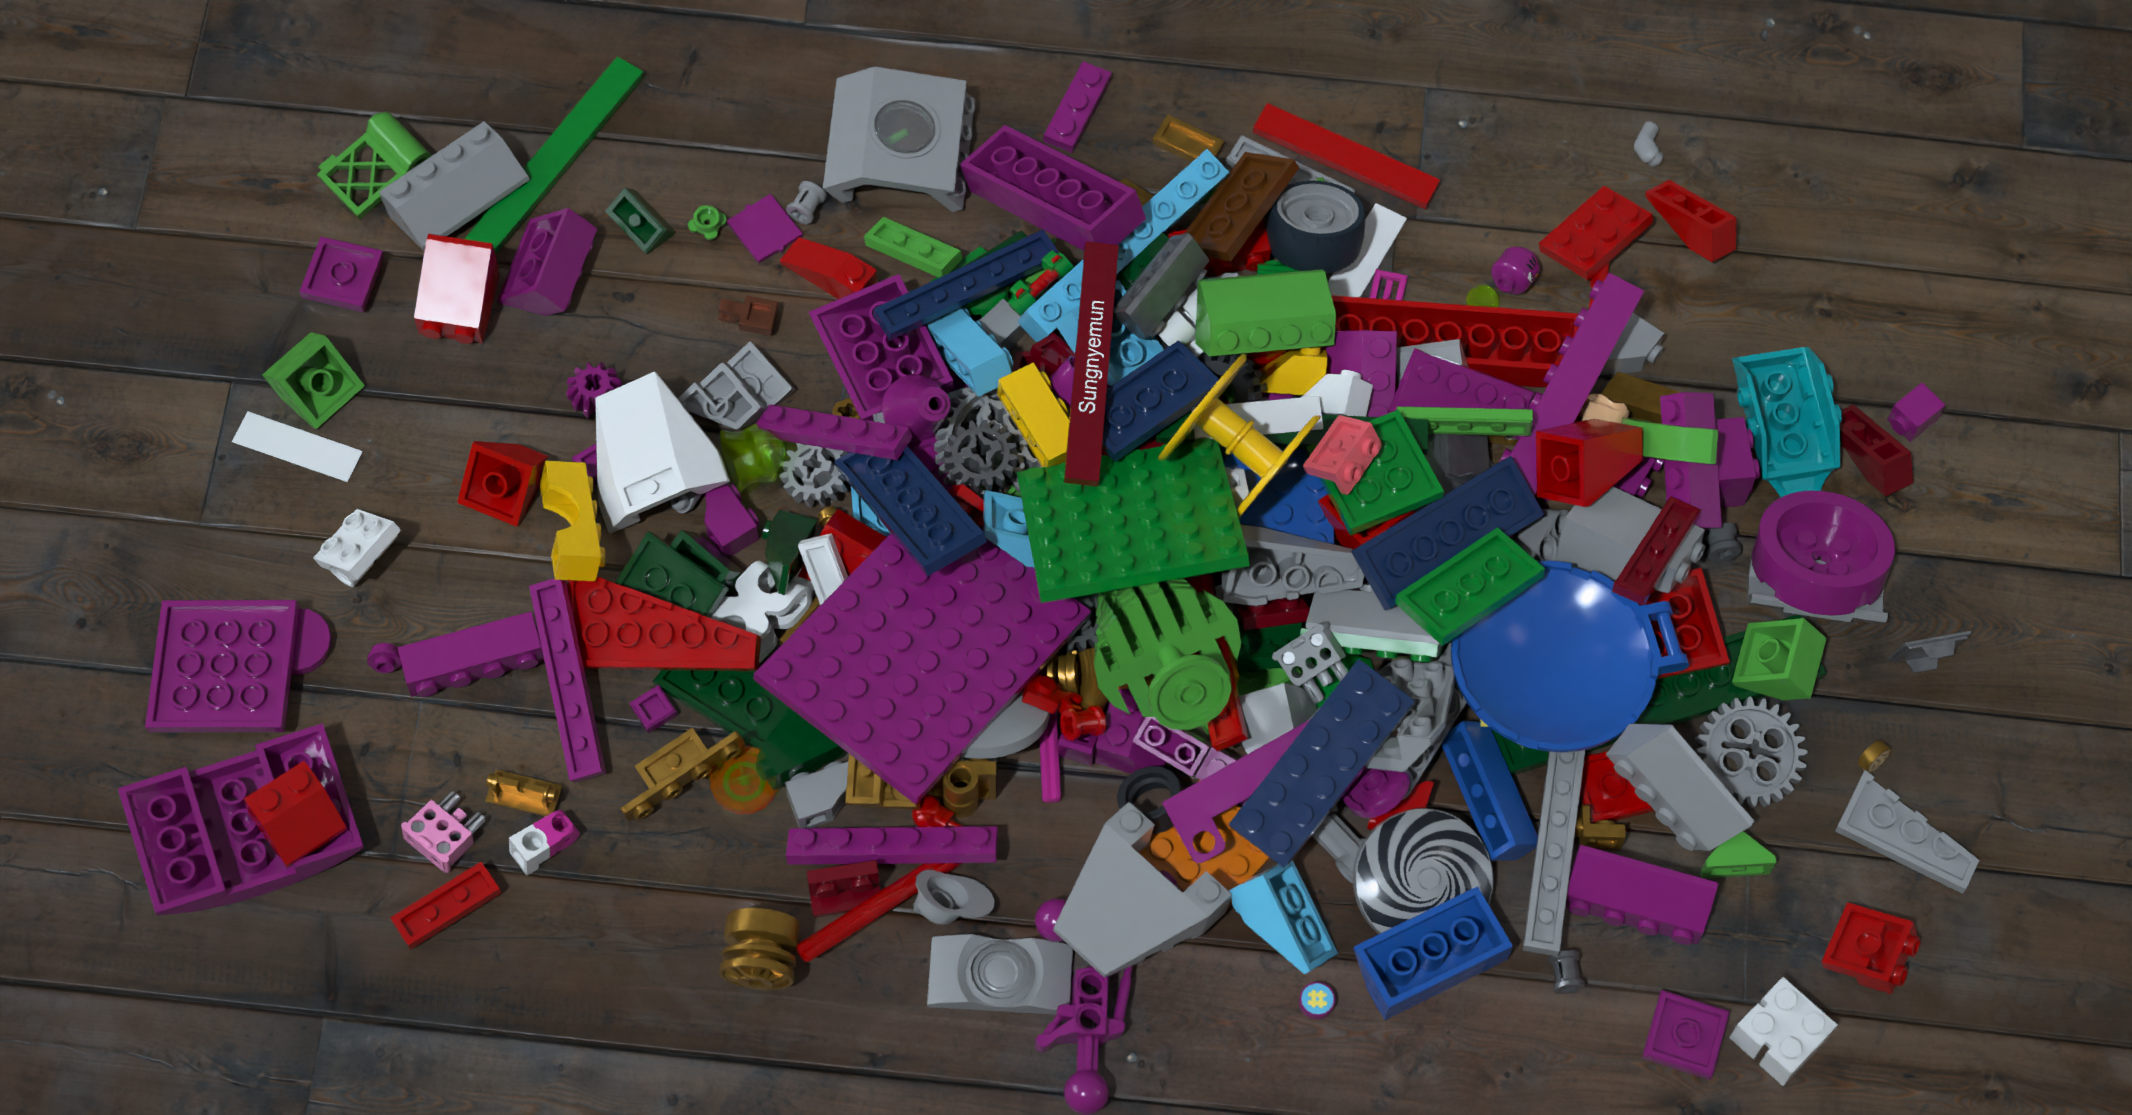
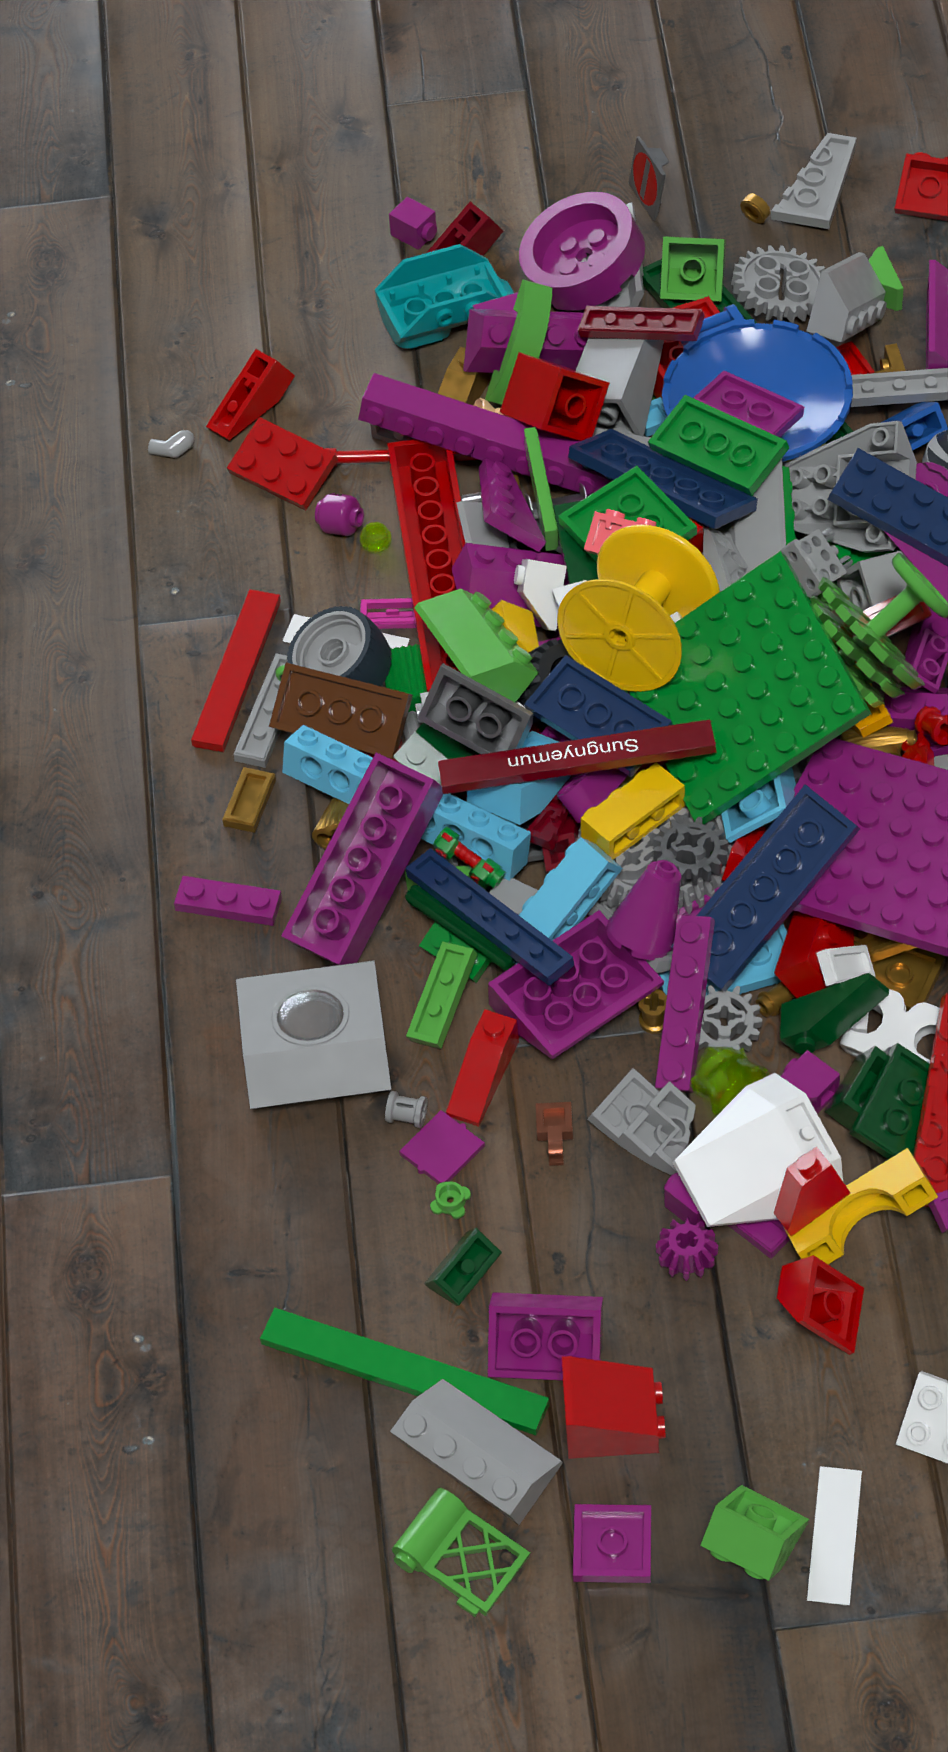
camera: 95 degrees left, 10 degrees down
(596, 480) = (808, 1191): none -> red slope
(1534, 641) = (751, 403): none -> magenta tile

